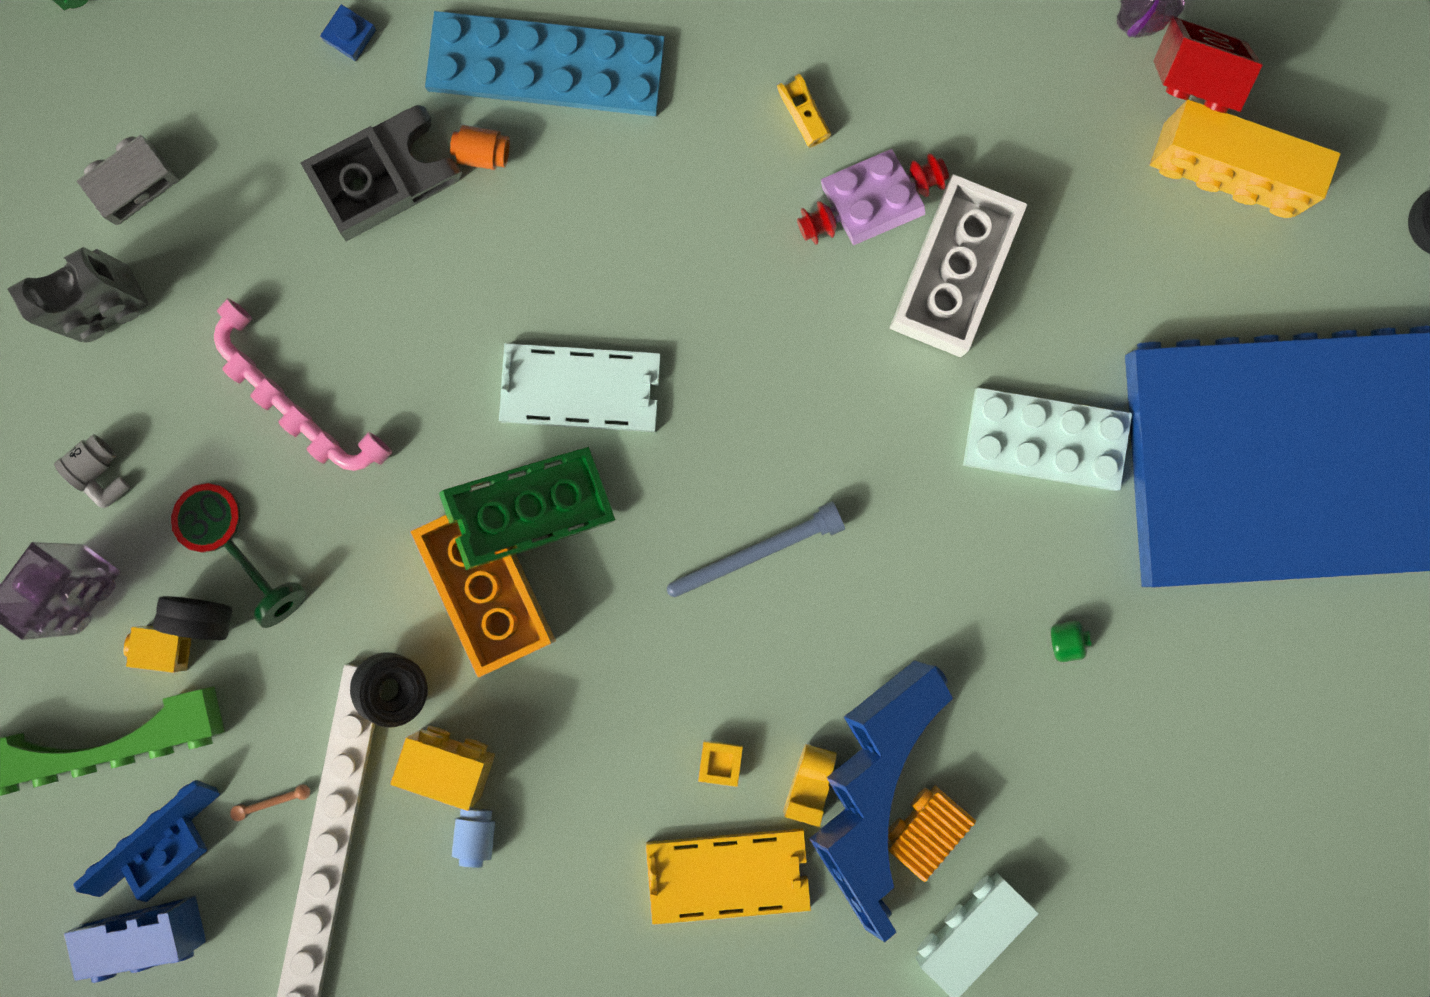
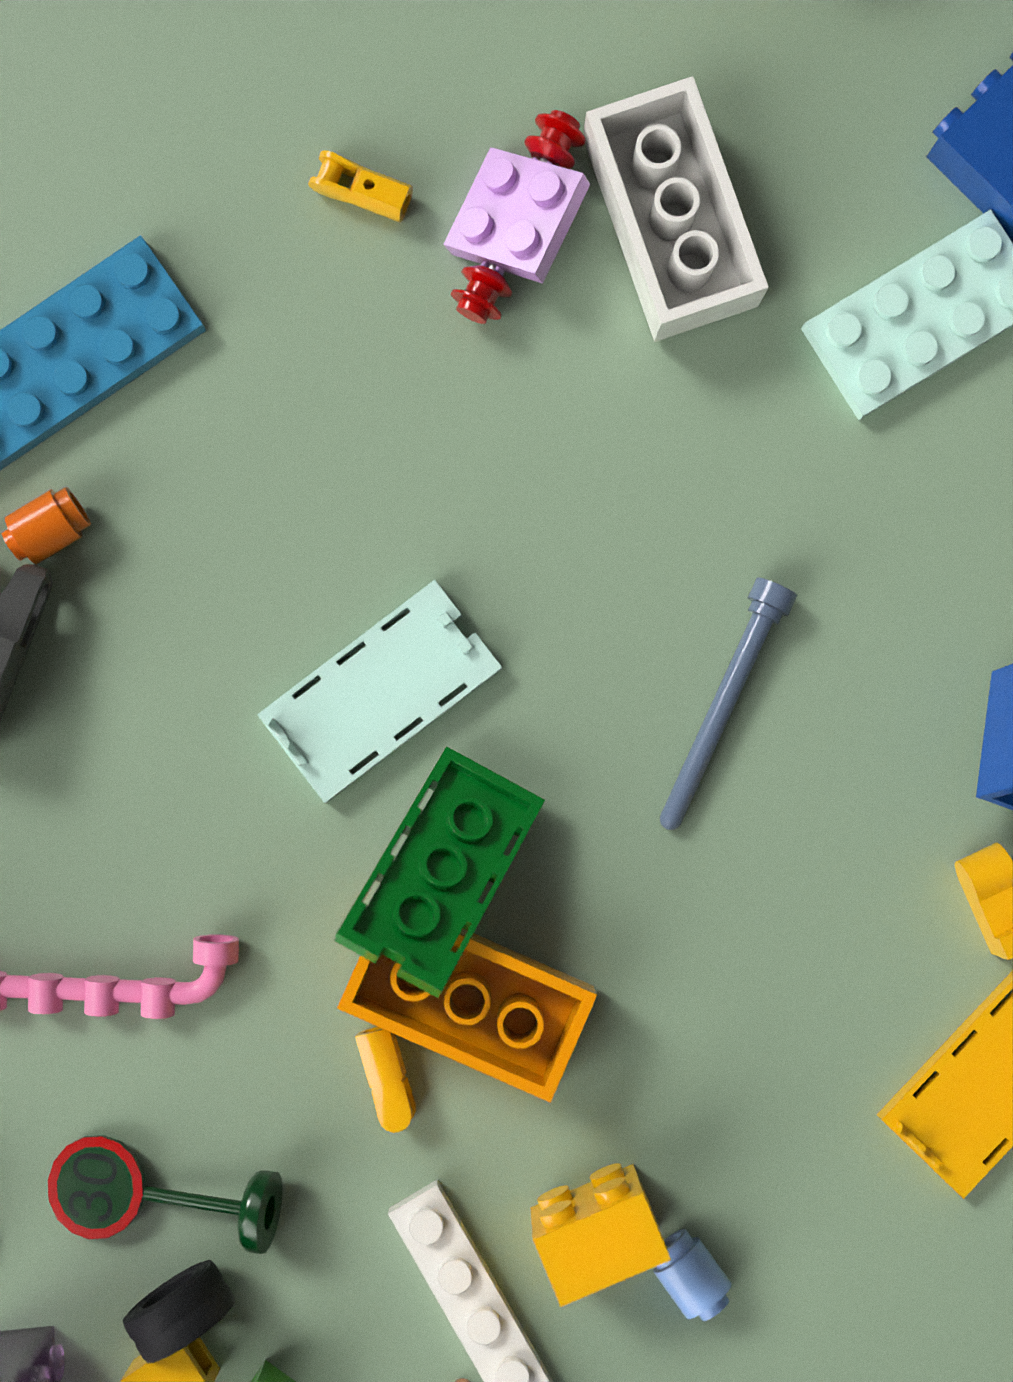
camera: 45 degrees left, 0 degrees up
(405, 594) = (387, 1078): none -> yellow bar
(410, 695) = (430, 1199): black tyre -> none
(720, 763) = (884, 962): yellow plate -> none

